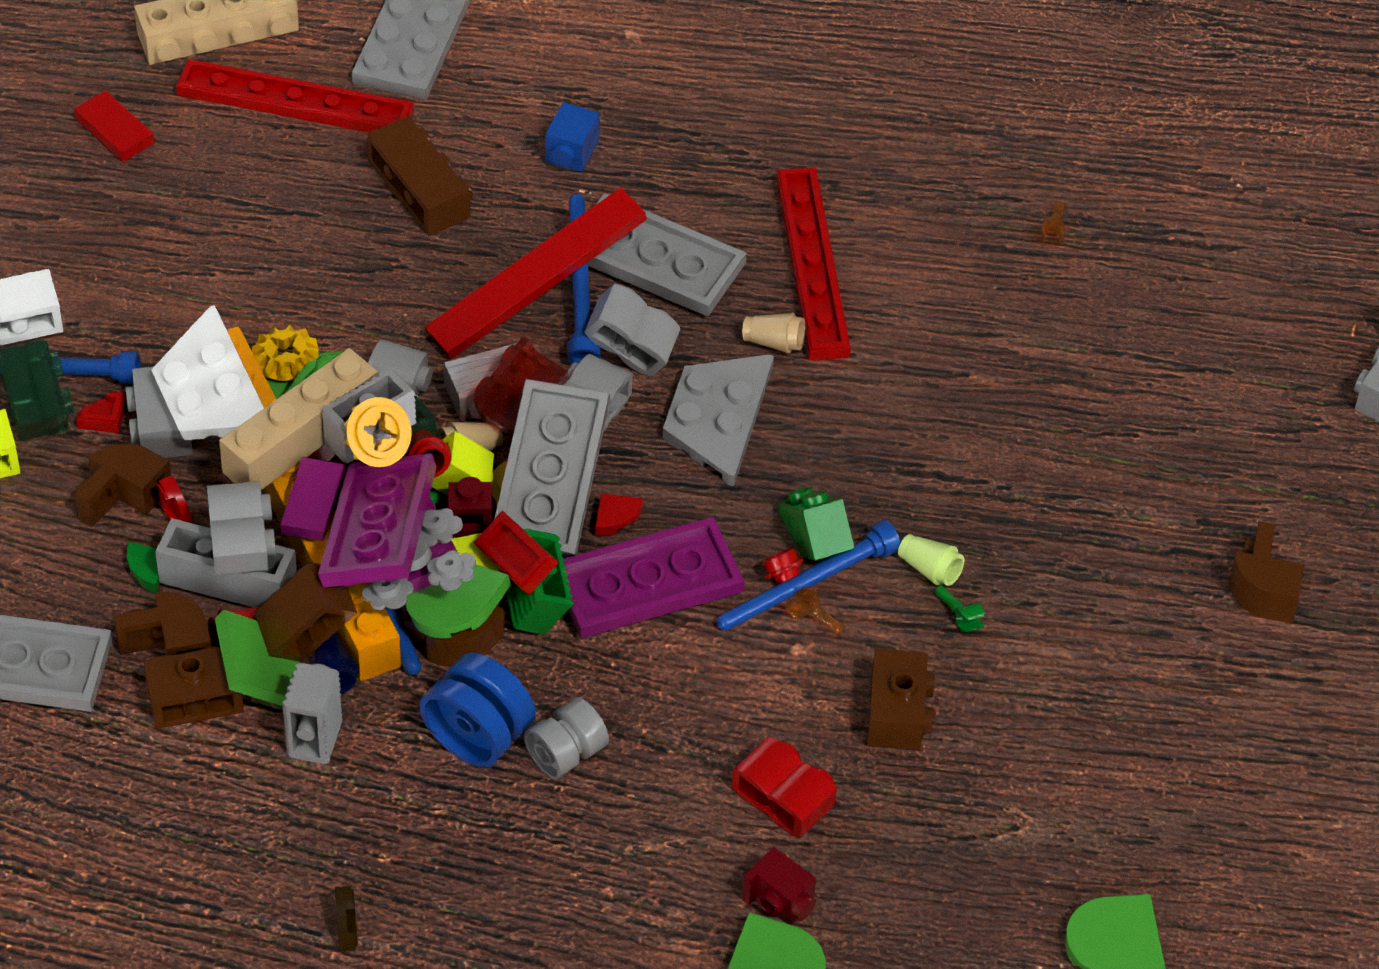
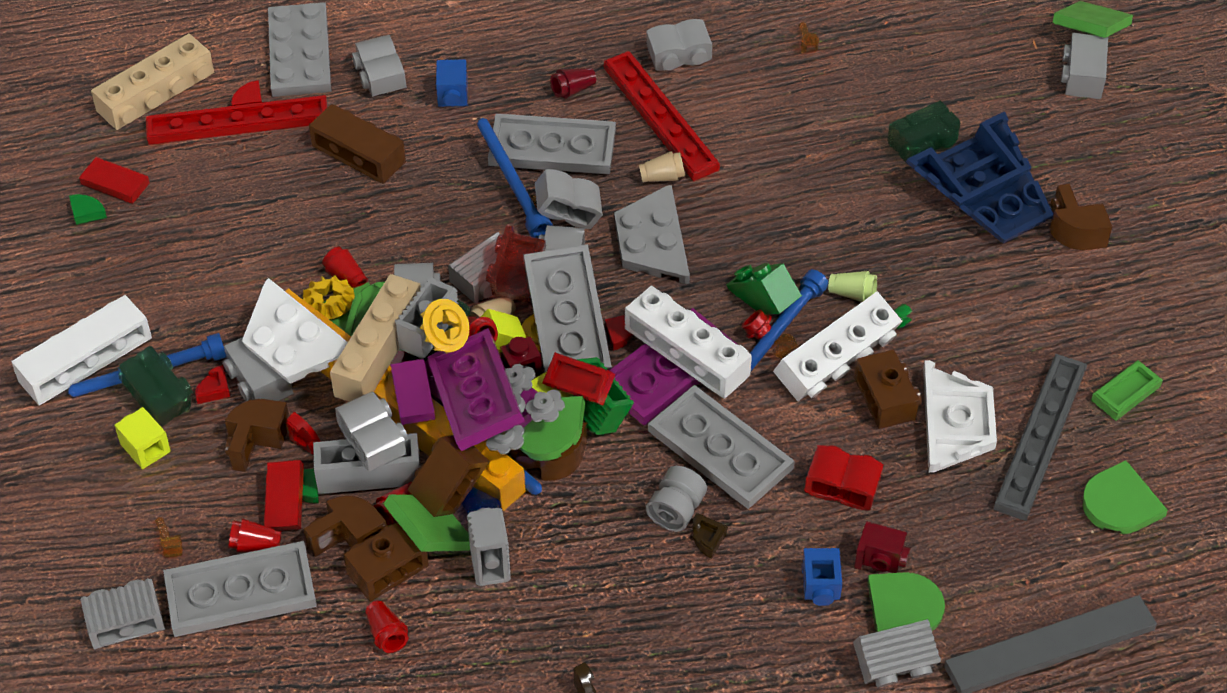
camera: 20 degrees left, 0 degrees up
(57, 604) = (251, 536): none -> red cone
(64, 150) = (86, 208): none -> green tile
(116, 570) = (284, 495): none -> red tile
(154, 764) = (387, 629): none -> red cone
(322, 71) = (247, 94): none -> red tile
(324, 322) = (343, 265): none -> red cone
(477, 709) = (607, 500): blue wheel -> none
(495, 87) = (380, 65): none -> light grey brick
(535, 273) = (479, 183): red tile -> none
(587, 795) = (708, 534): none -> dark brown tile
(657, 696) = (721, 446): none -> light grey plate
(678, 554) = (688, 341): none -> white brick
(690, 891) = (822, 575): none -> blue brick
(722, 183) = (571, 81): none -> dark red cone
(854, 626) = (837, 347): none -> white brick
(881, 180) = (679, 44): none -> light grey brick
(966, 766) = (957, 417): none -> white wing
(1062, 827) = (1040, 437): none -> dark grey tile
(1132, 395) = (924, 129): none -> clear green brick
(1175, 484) = (988, 180): none -> dark blue wedge
(1206, 809) = (1126, 390): none -> bright green tile

